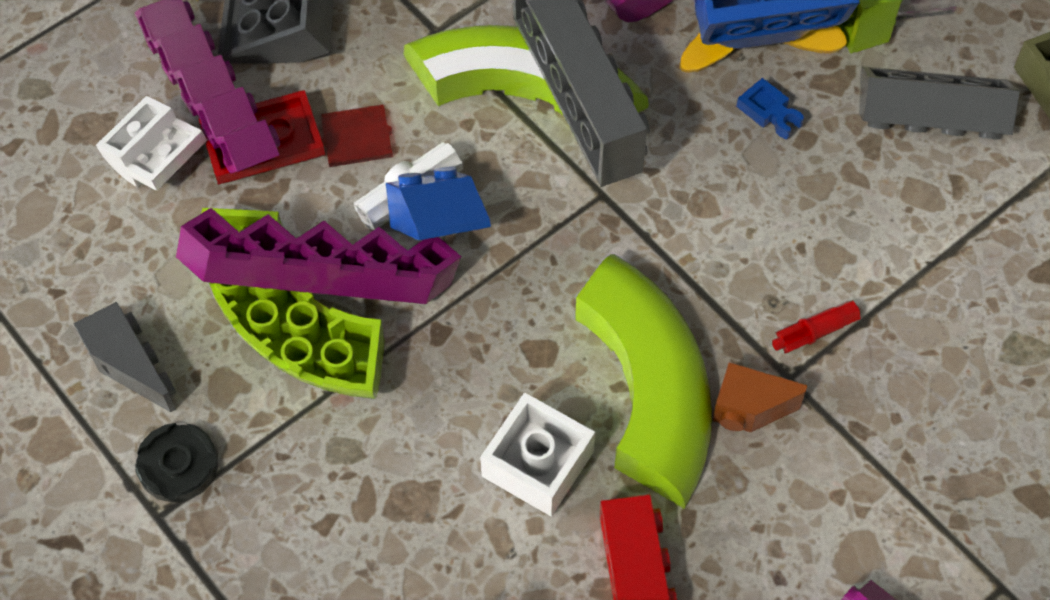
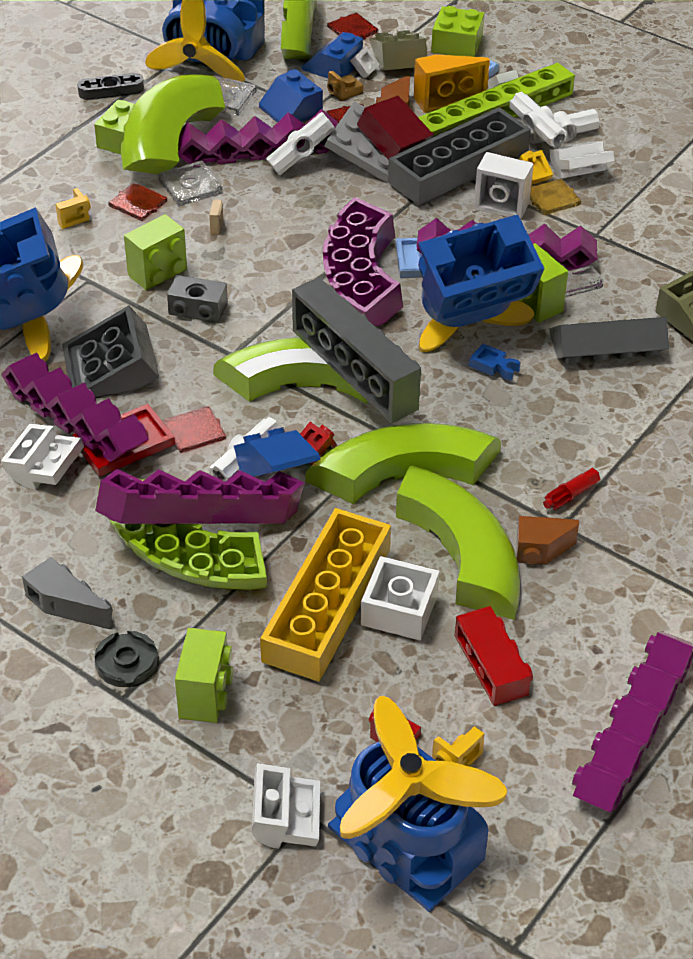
camera: 15 degrees left, 15 degrees down
(253, 519) = (203, 675): none -> lime brick
(444, 427) = (325, 595): none -> yellow brick
(500, 187) = (318, 437): none -> red bracket
(607, 221) = (389, 451): none -> lime brick

